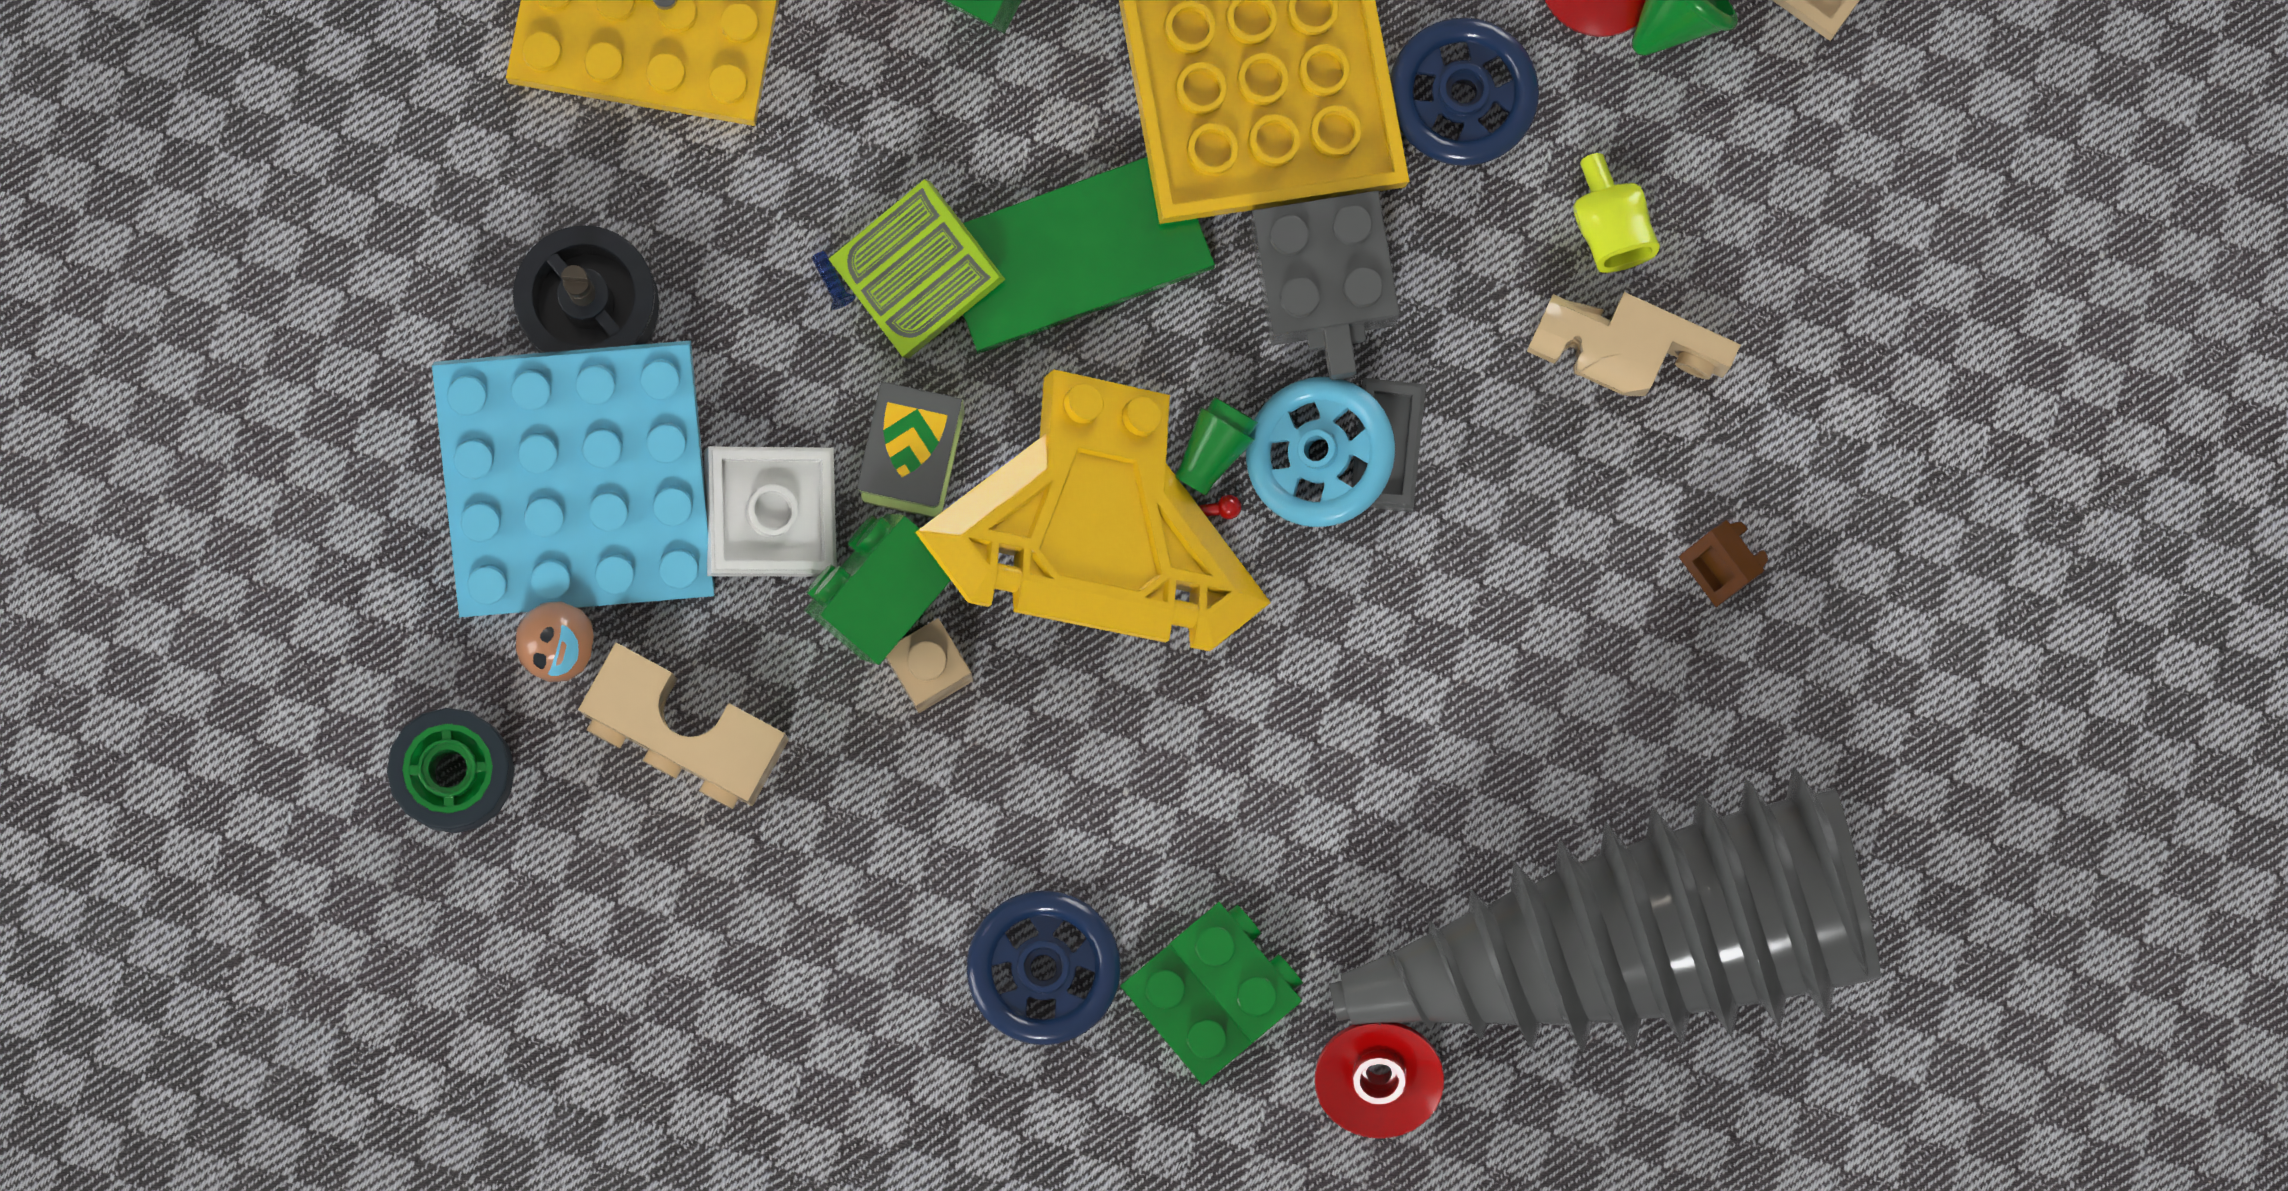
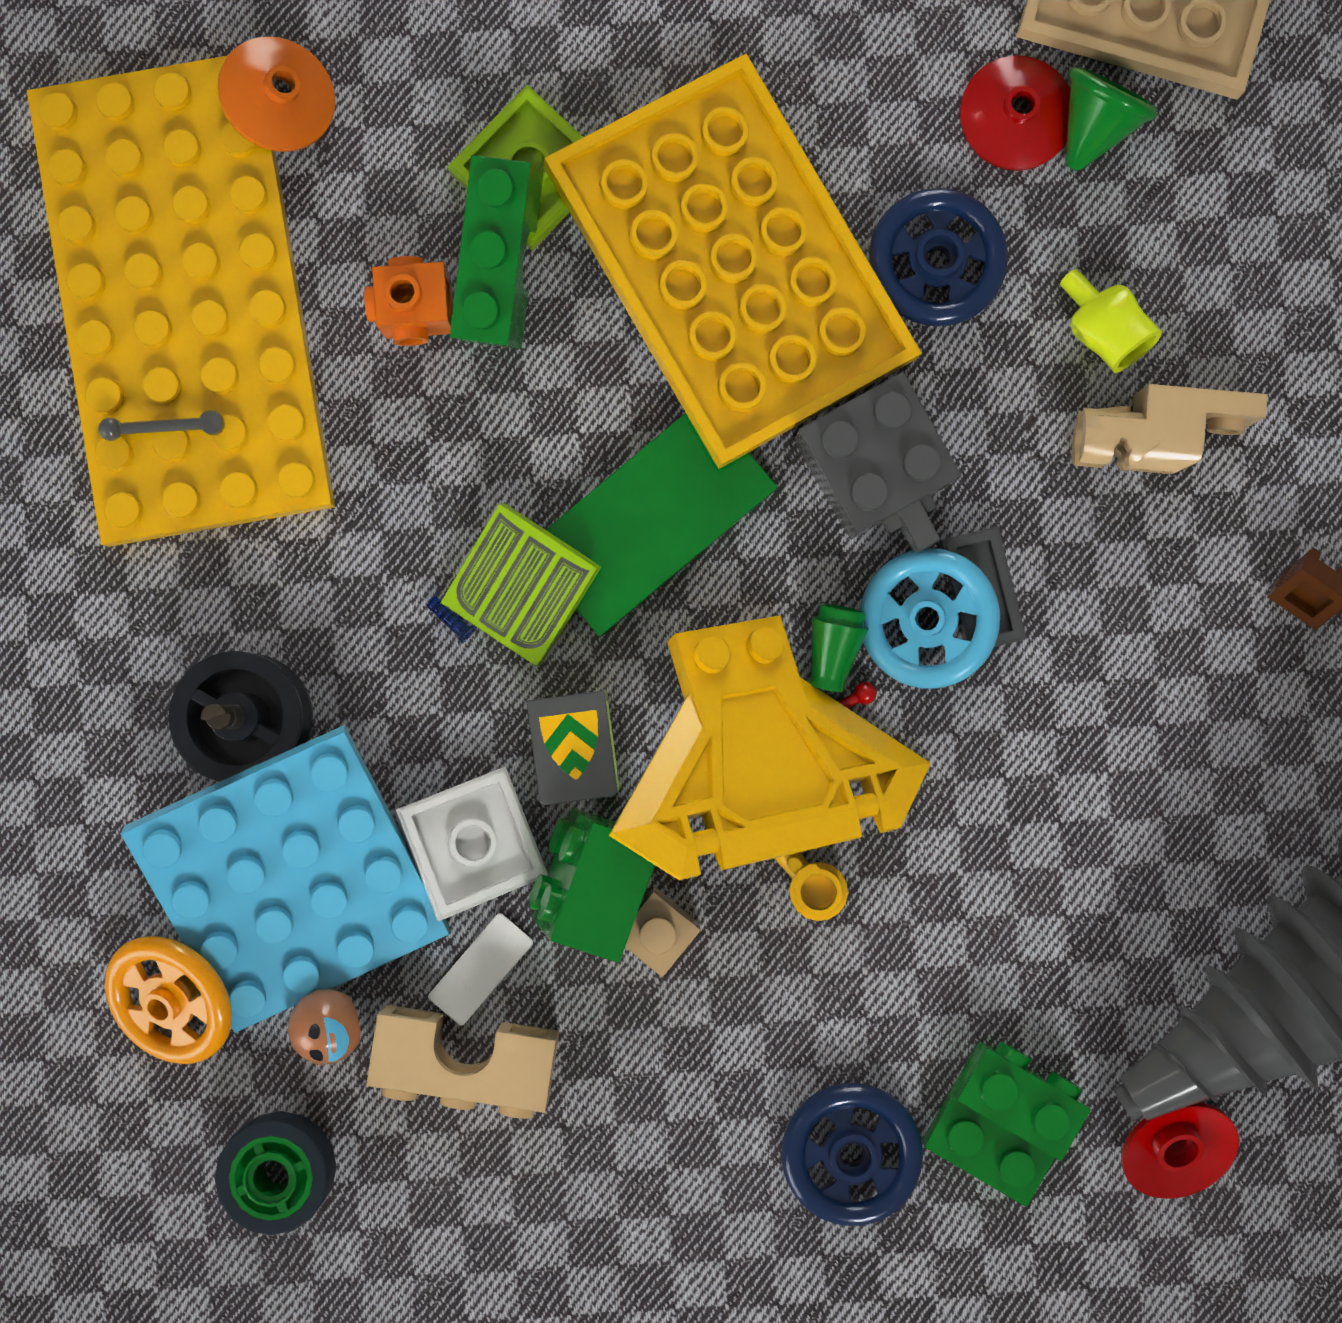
camera: 15 degrees left, 5 degrees up
(364, 570) = (168, 999): none -> light orange plate
(732, 646) = (480, 969): none -> white sticker
(1105, 685) = (816, 888): none -> yellow plate

